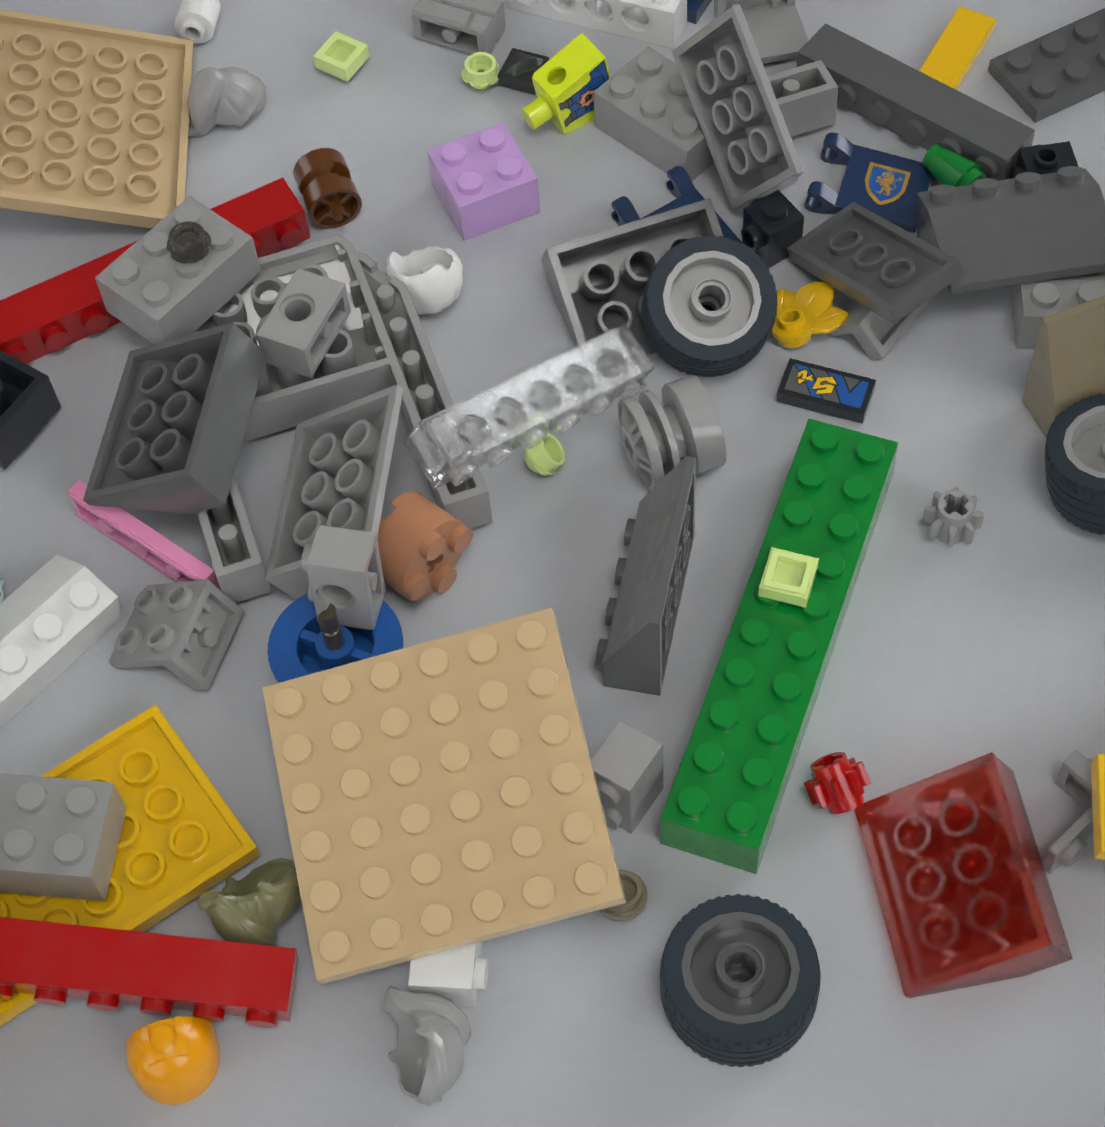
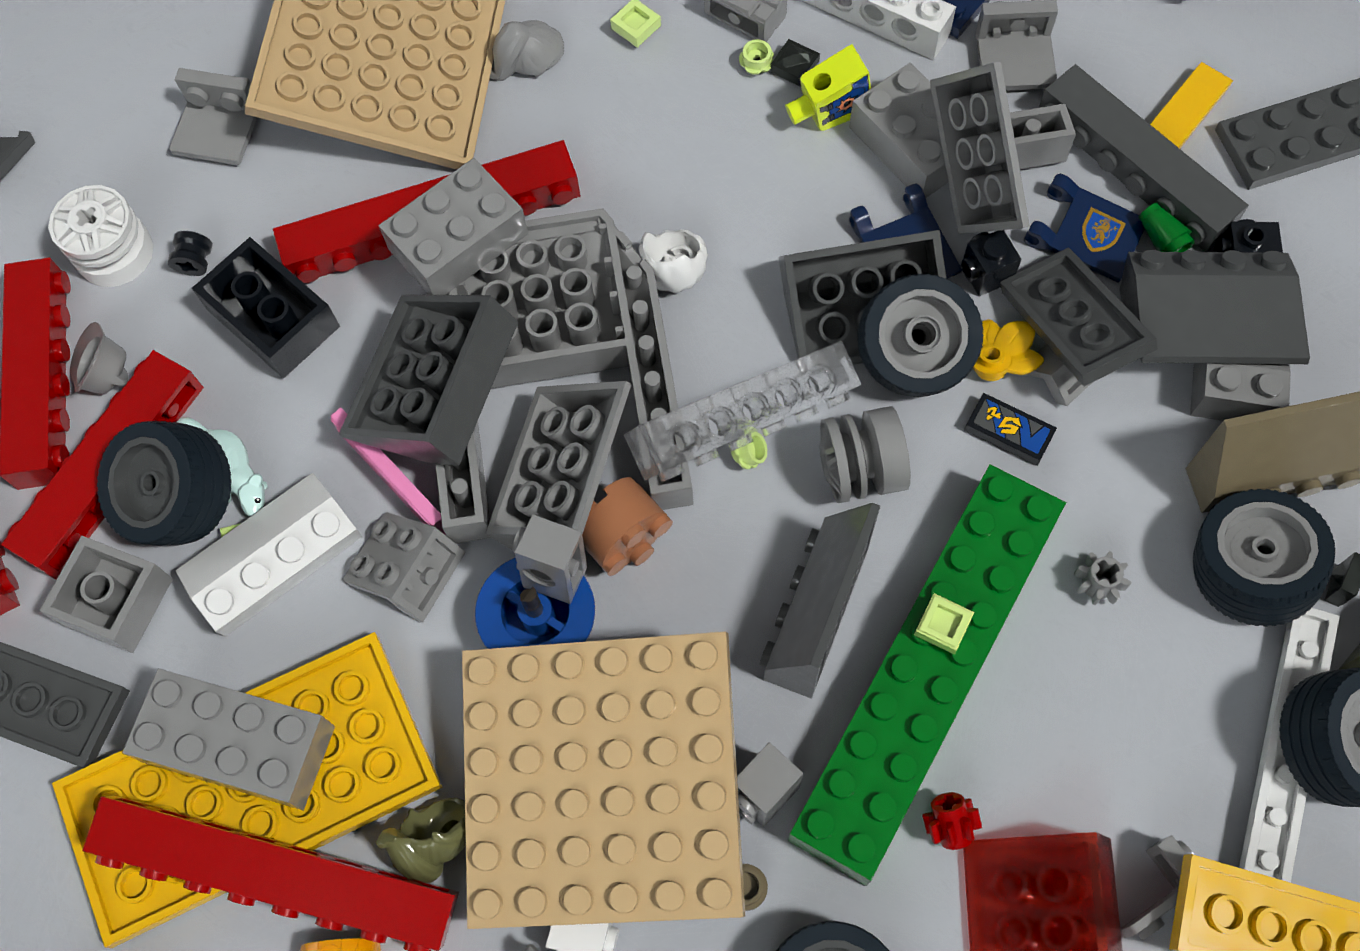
camera: 10 degrees right, 10 degrees up
(188, 242) = (461, 201): clear smoke plate -> none
(303, 322) = (553, 316): light grey brick -> none
(327, 188) = (601, 154): reddish brown wheel -> none
(484, 181) = (741, 170): lavender brick -> none

